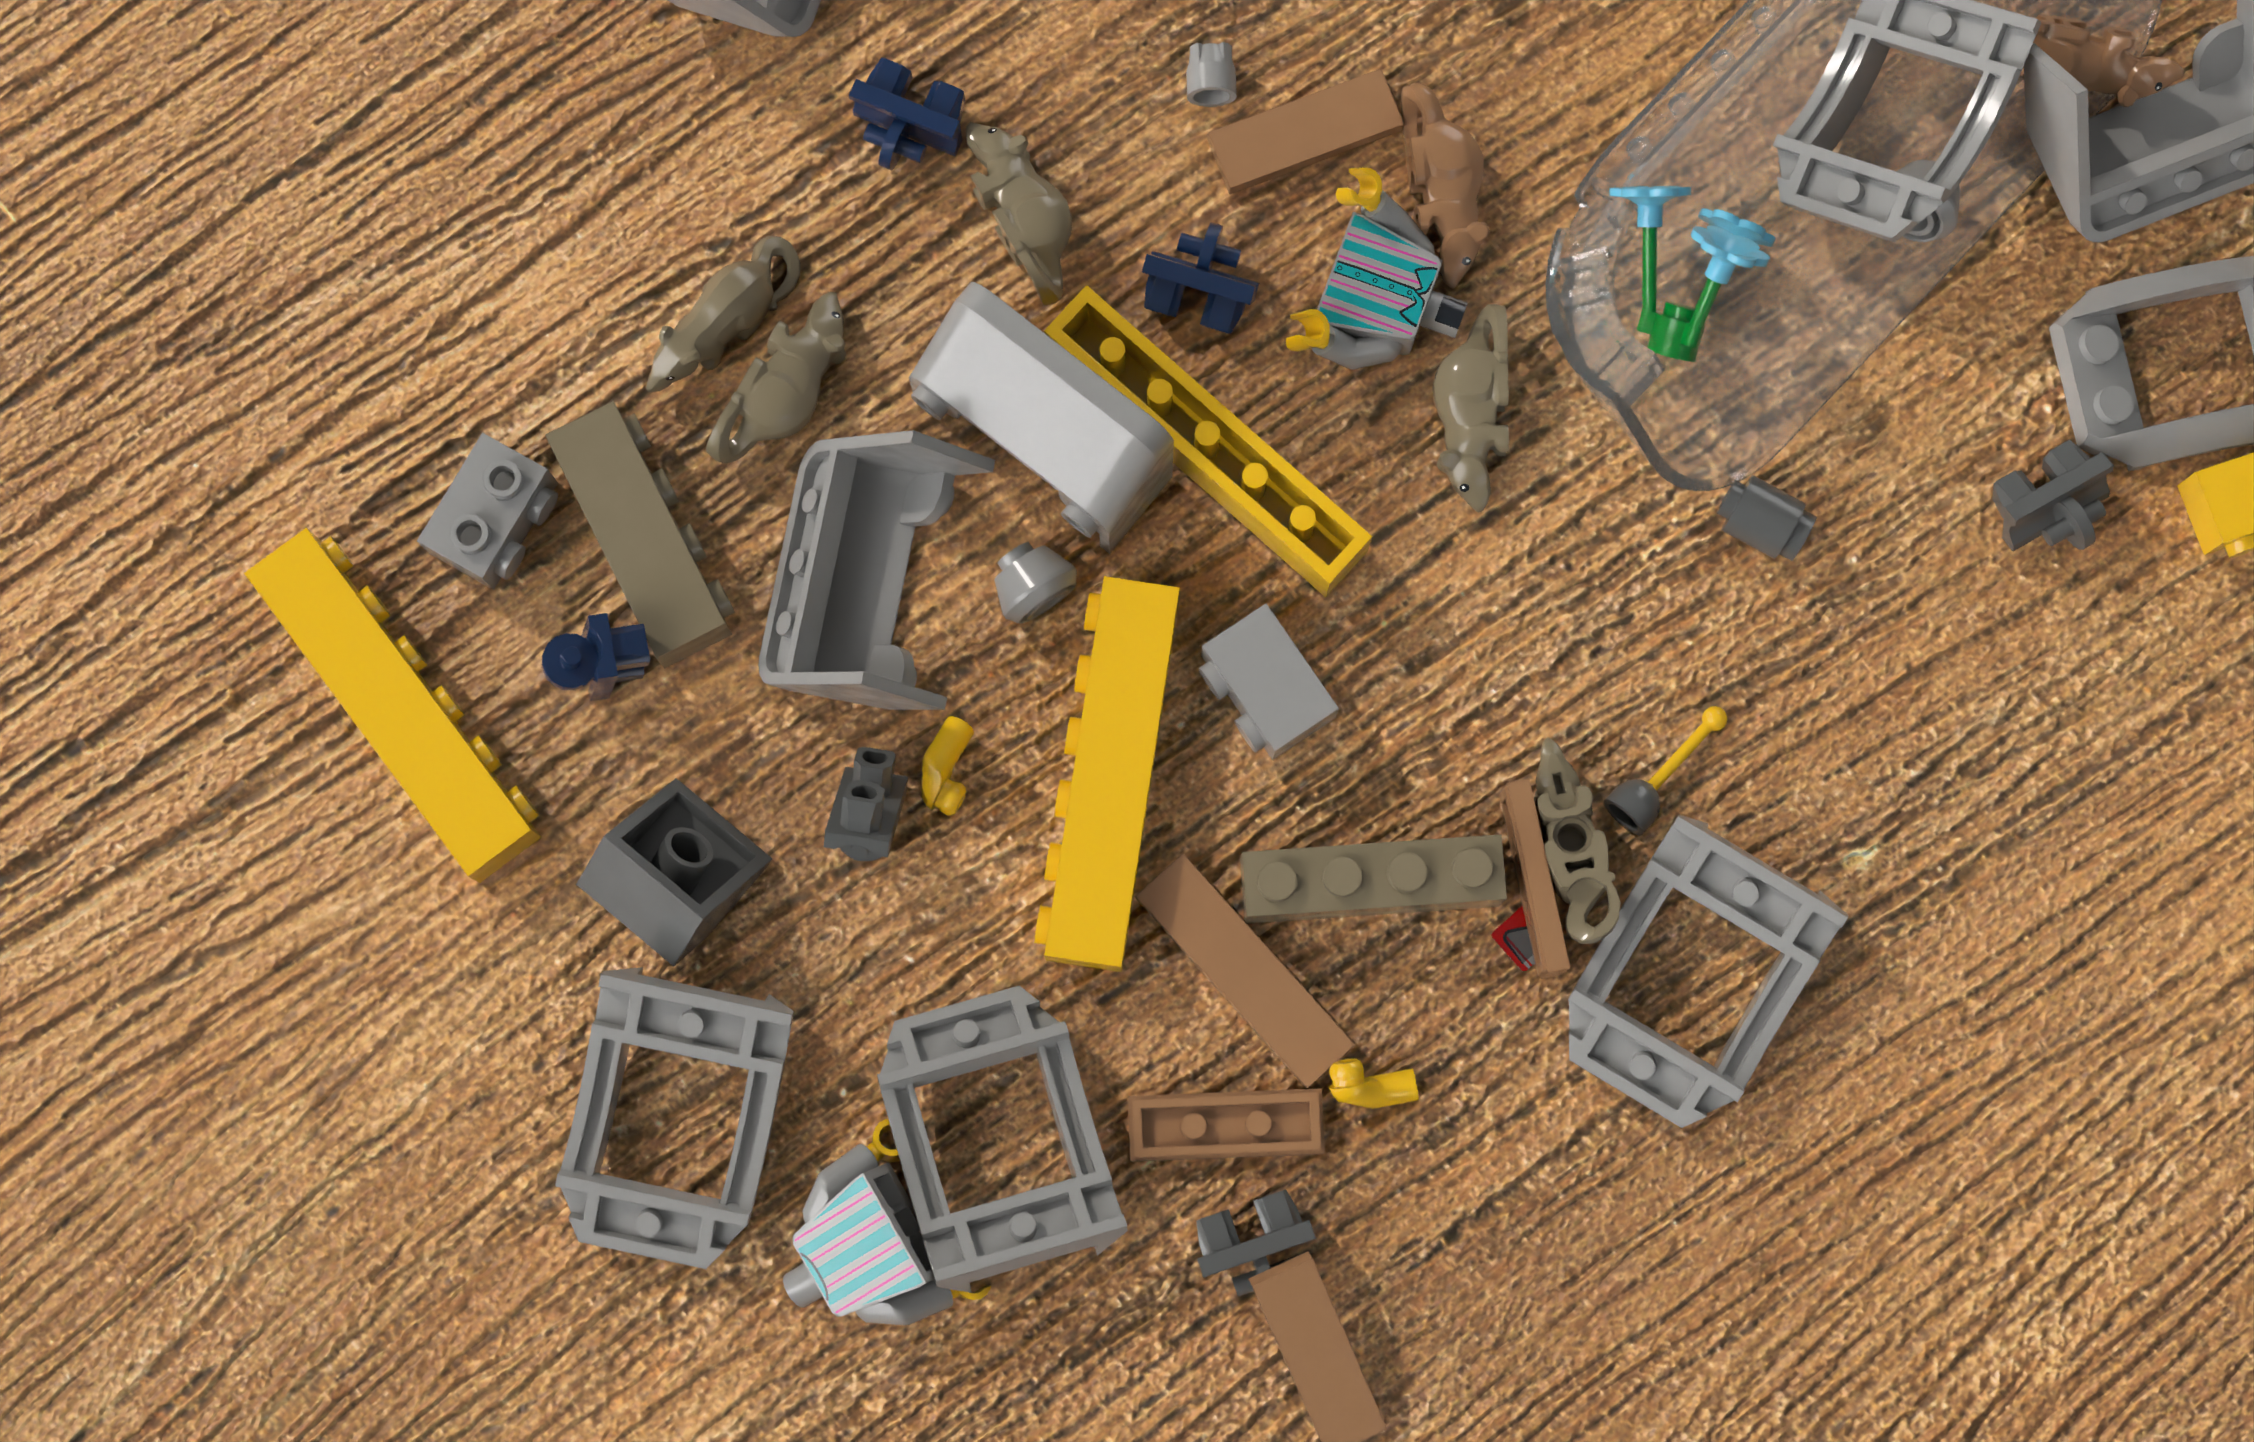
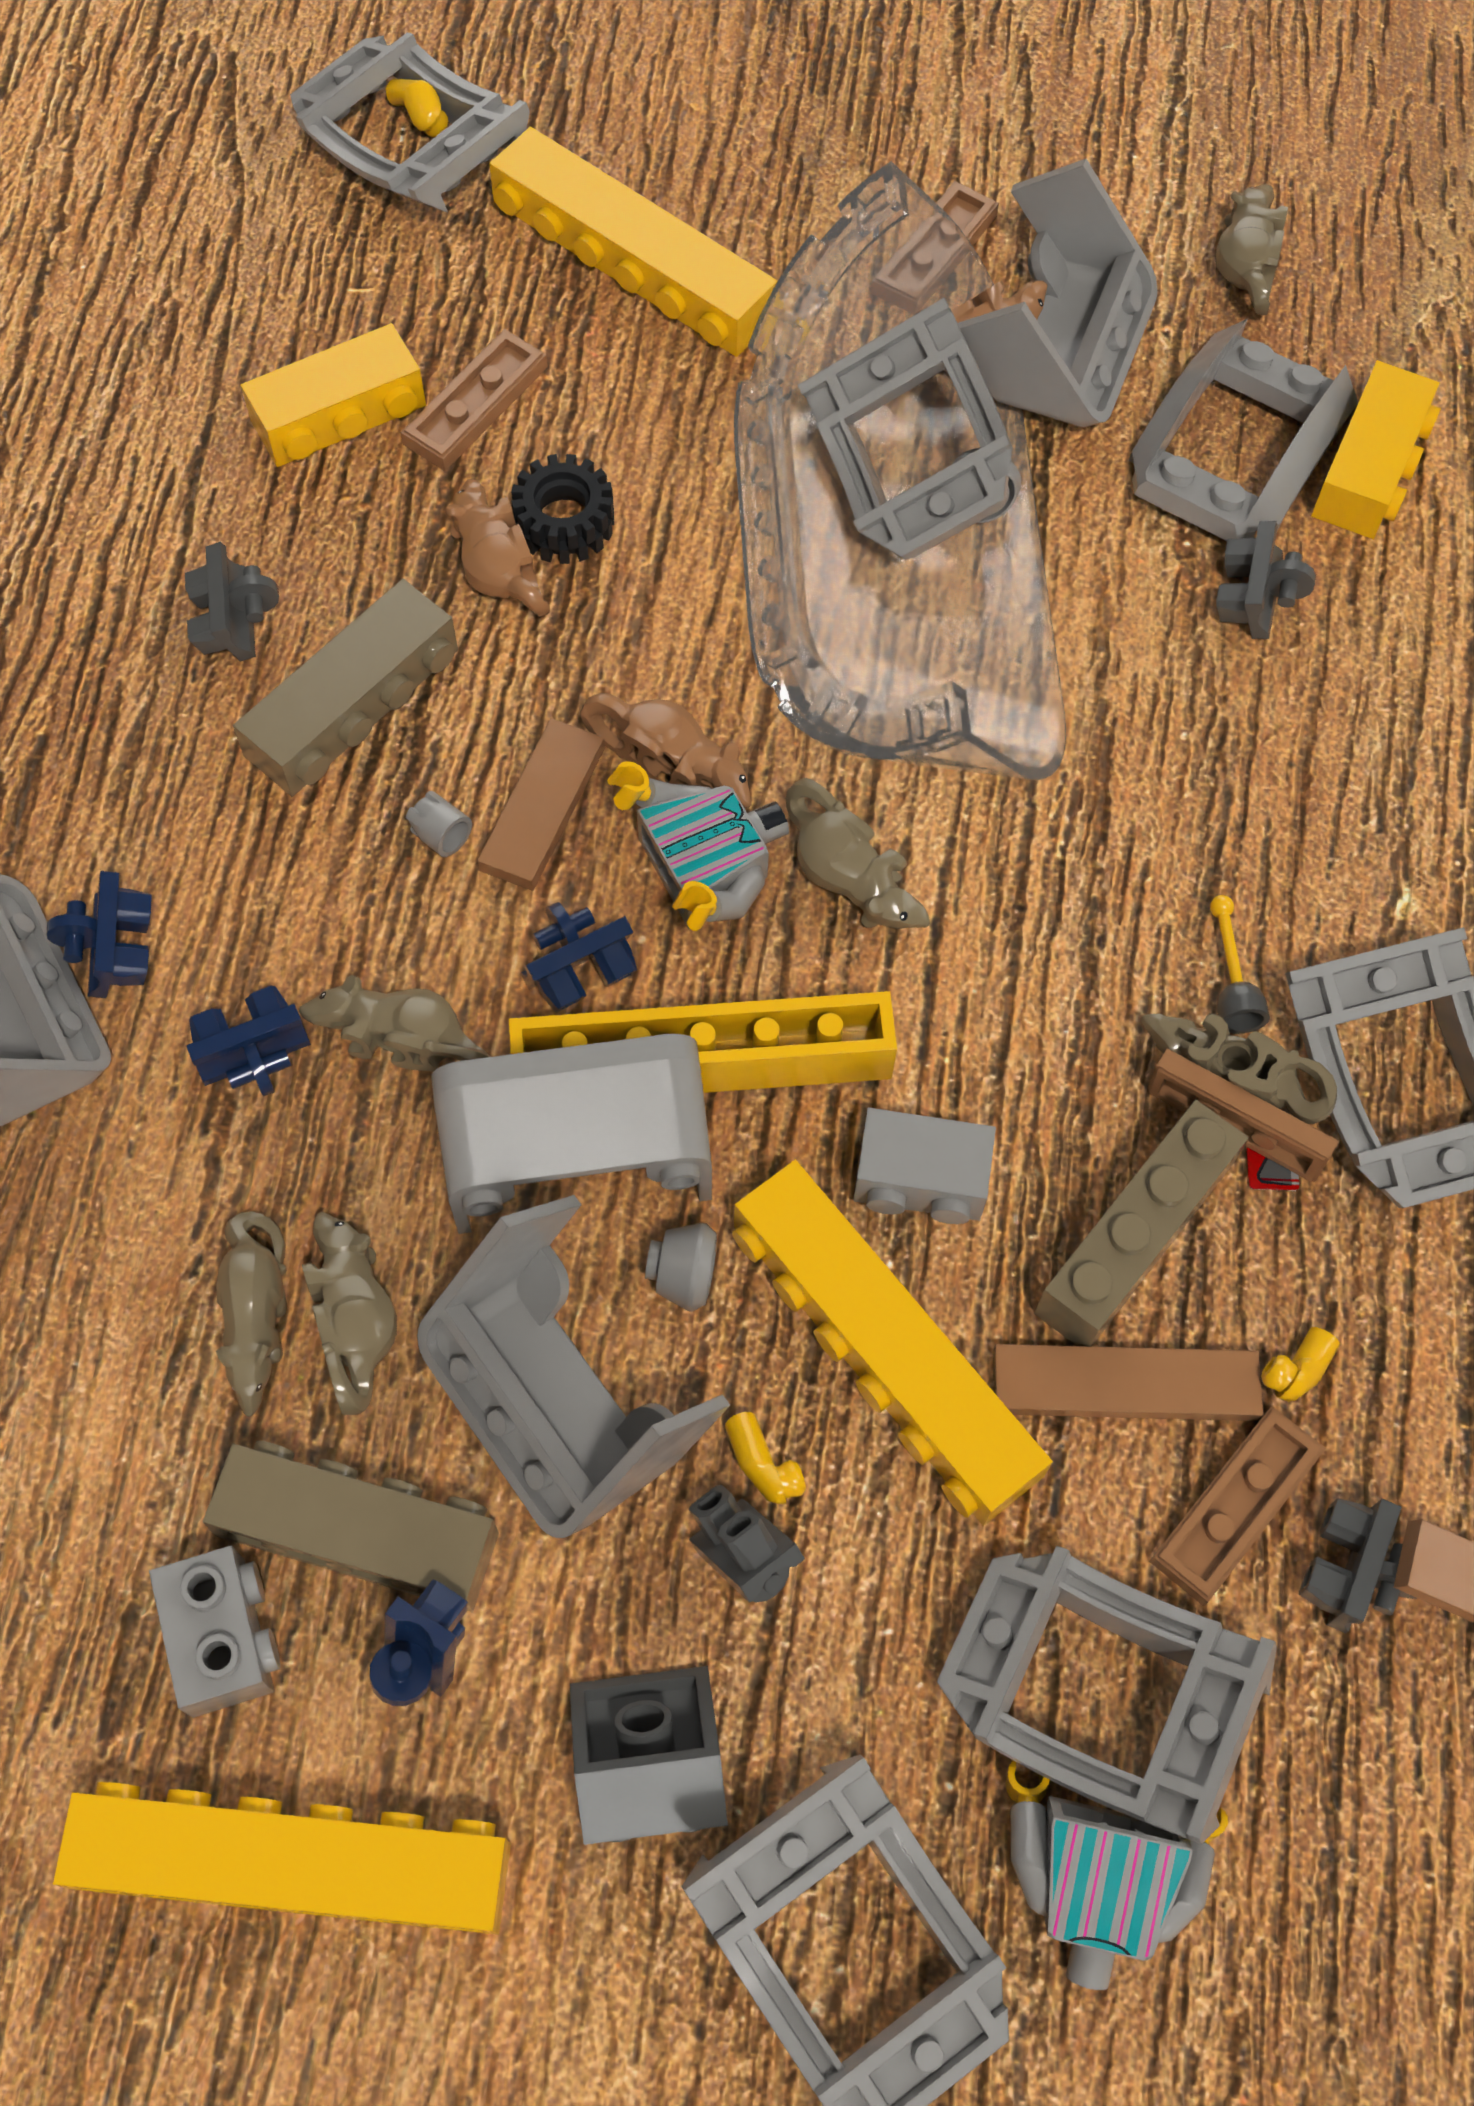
camera: 50 degrees left, 15 degrees down
(1729, 241) = (889, 602): plant -> none
(1766, 518) = (1110, 753): dark grey brick -> none

